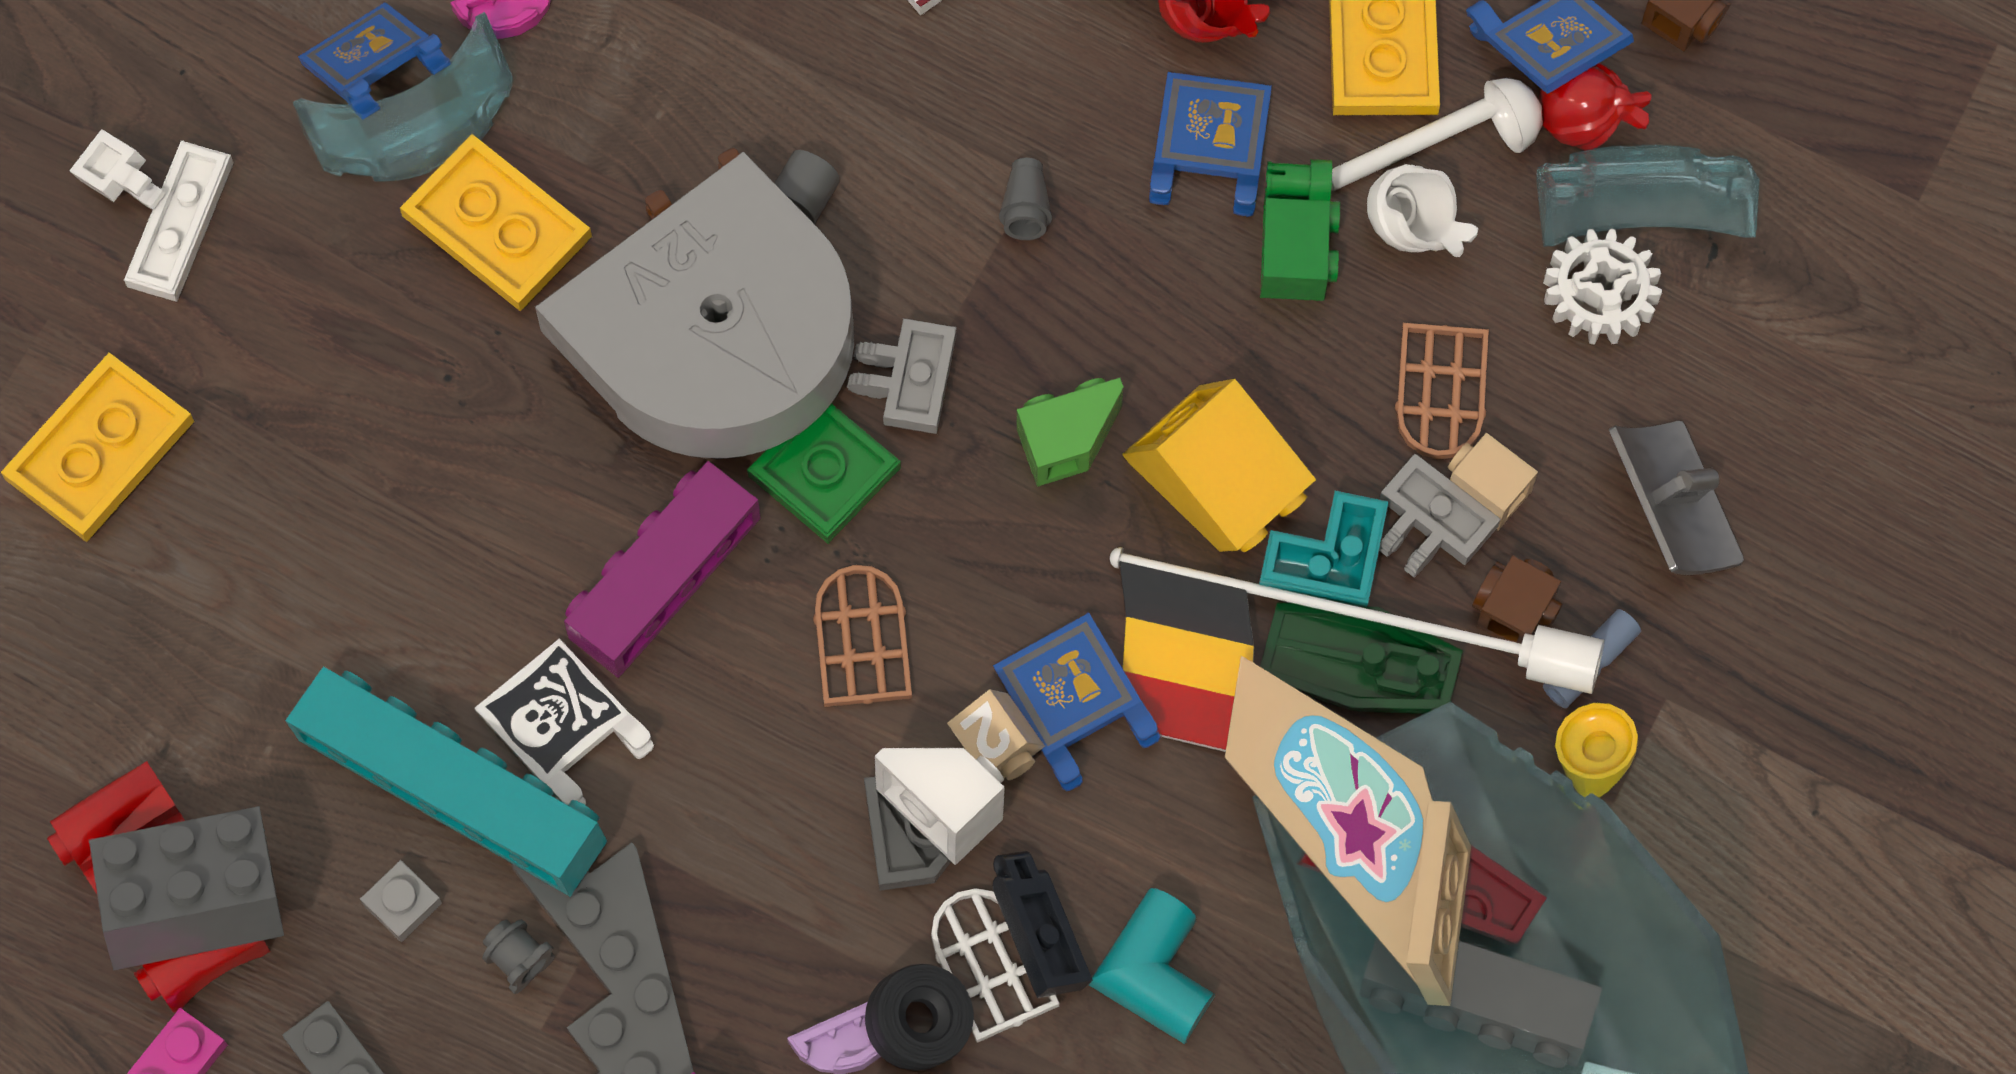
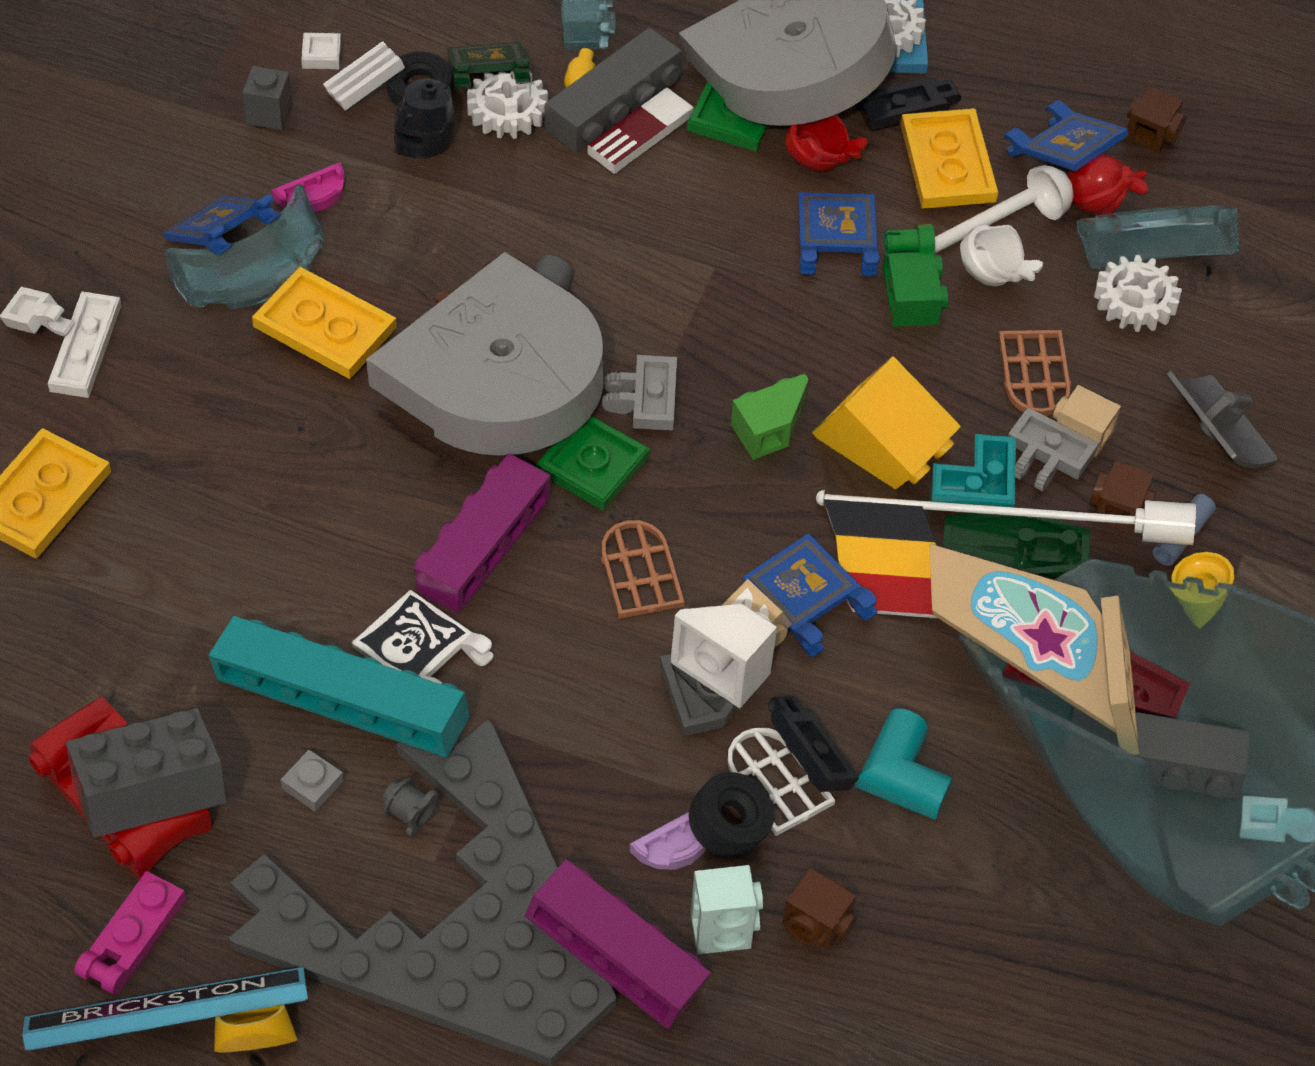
camera: 10 degrees left, 15 degrees down
(1026, 202) = (712, 277): dark grey cone -> none

